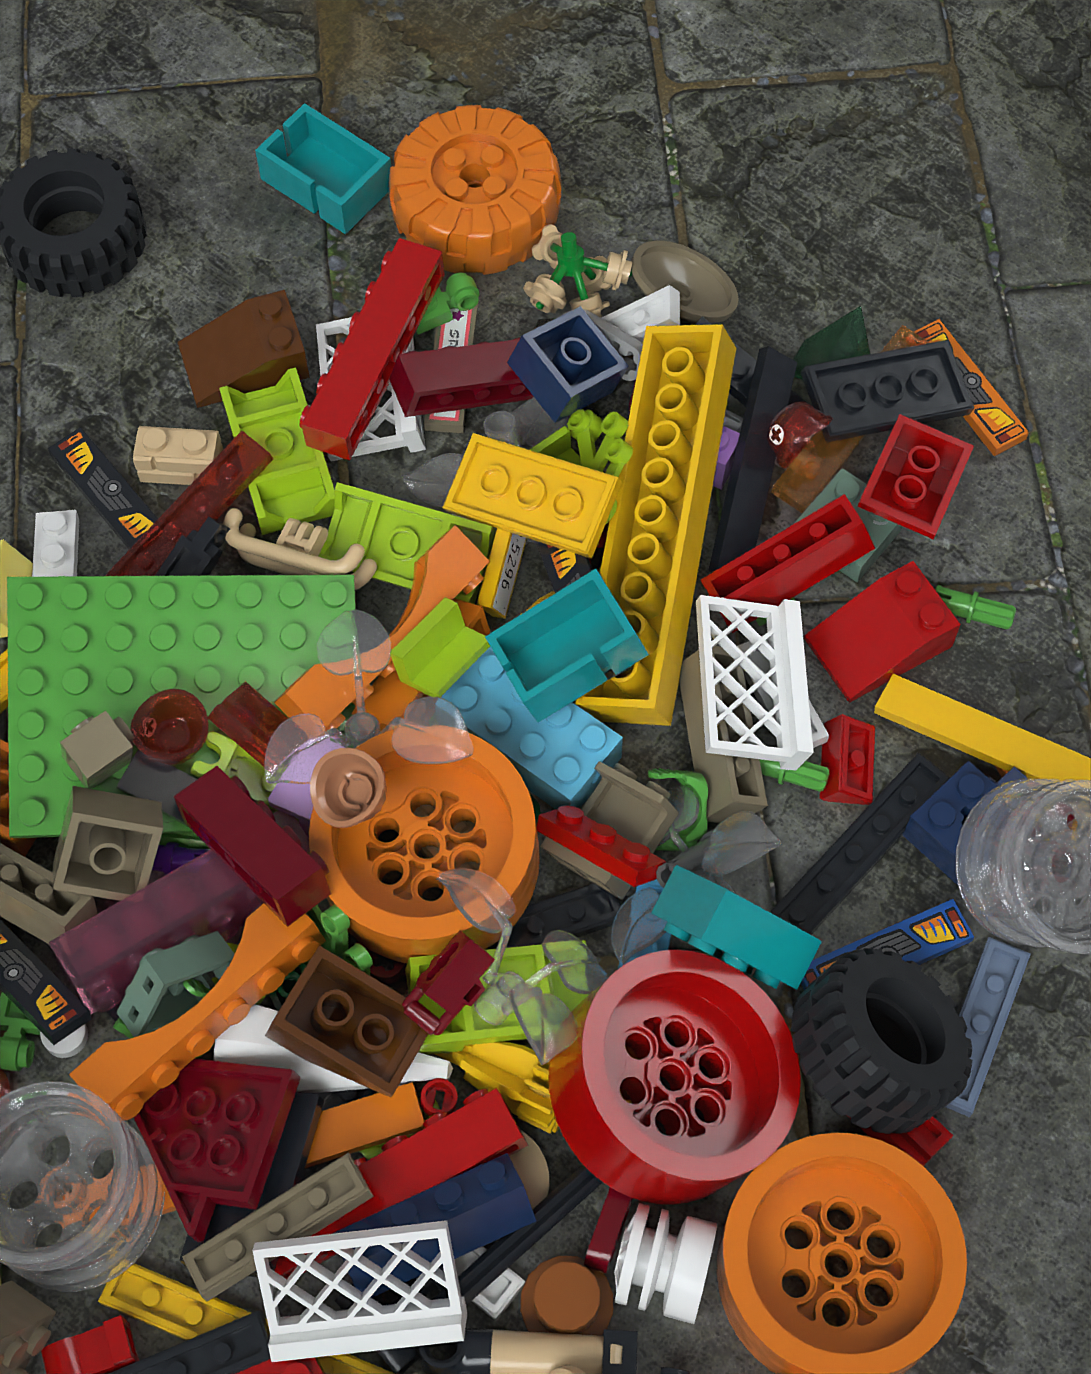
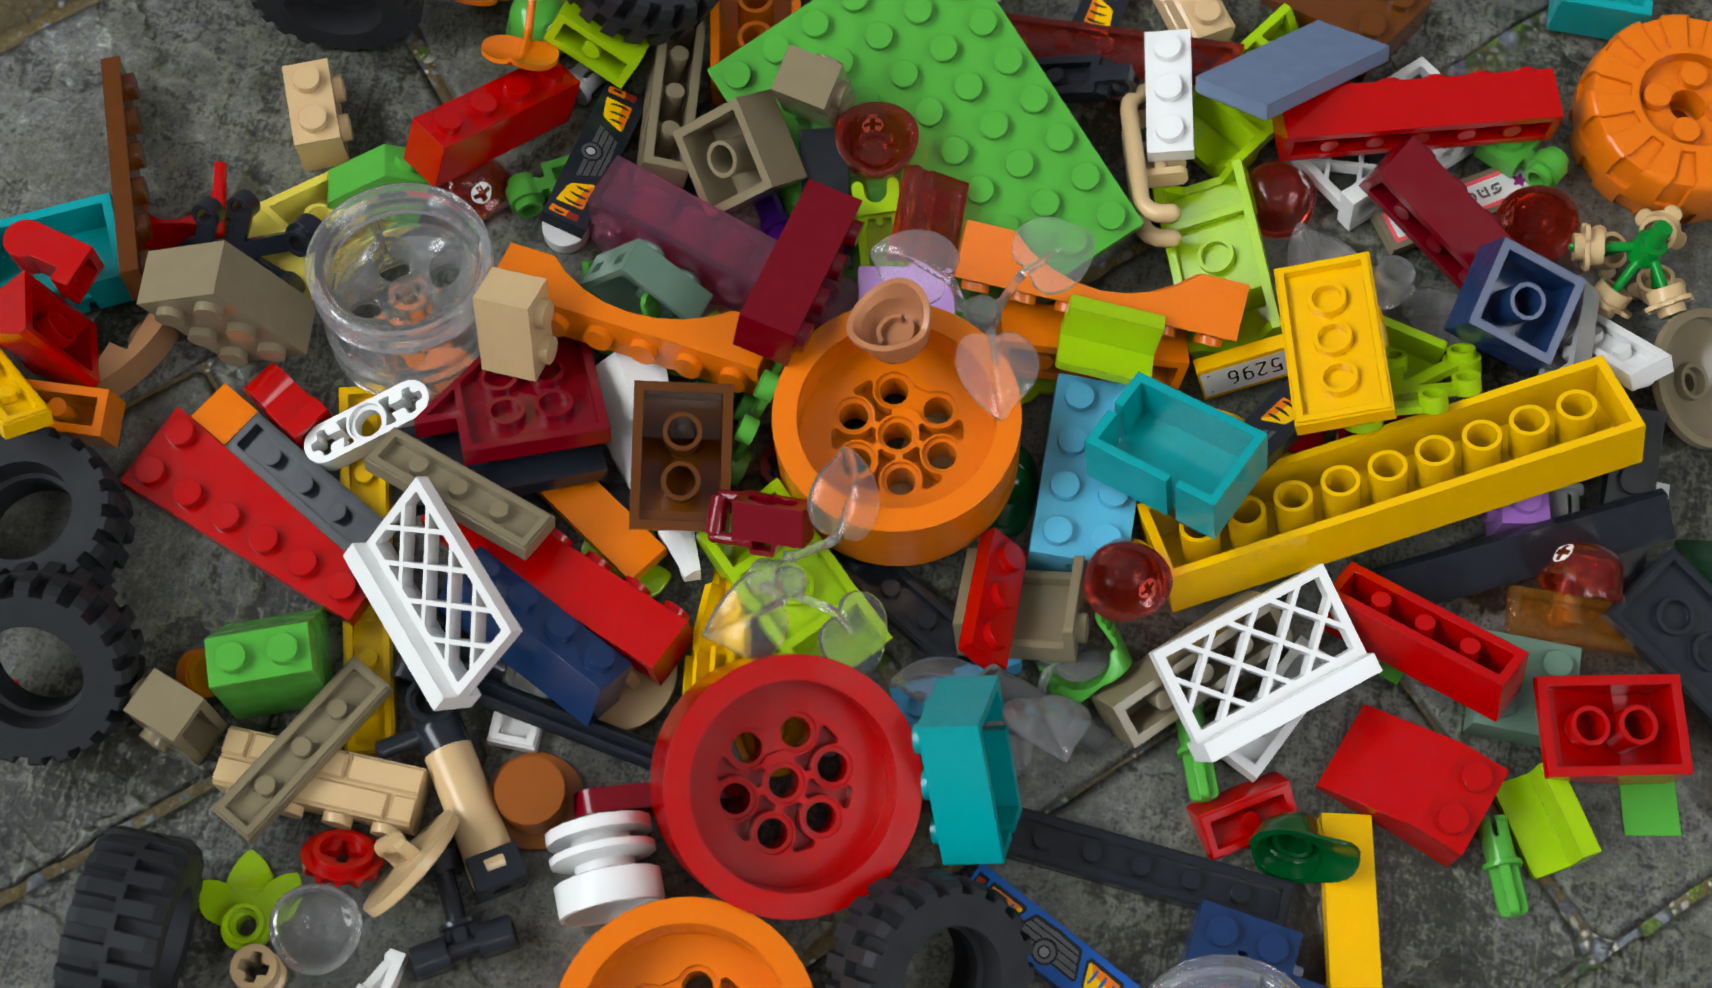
camera: 60 degrees right, 5 degrees up
(152, 1103) = (514, 324): none -> tan brick
(167, 1320) = (350, 422): none -> white beam
(251, 504) = (1169, 95): none -> white plate
(289, 407) = (1291, 69): none -> sand blue tile
(374, 473) = (1282, 198): none -> clear red helmet
(429, 1092) = (662, 571): red hinge -> none
(501, 315) = (1540, 219): none -> clear red helmet
(639, 736) = (1127, 580): none -> clear red helmet
(899, 734) = (1296, 850): none -> dark green piece
(956, 559) = (1546, 823): none -> lime panel
(975, 494) = (1650, 810): none -> bright green sticker

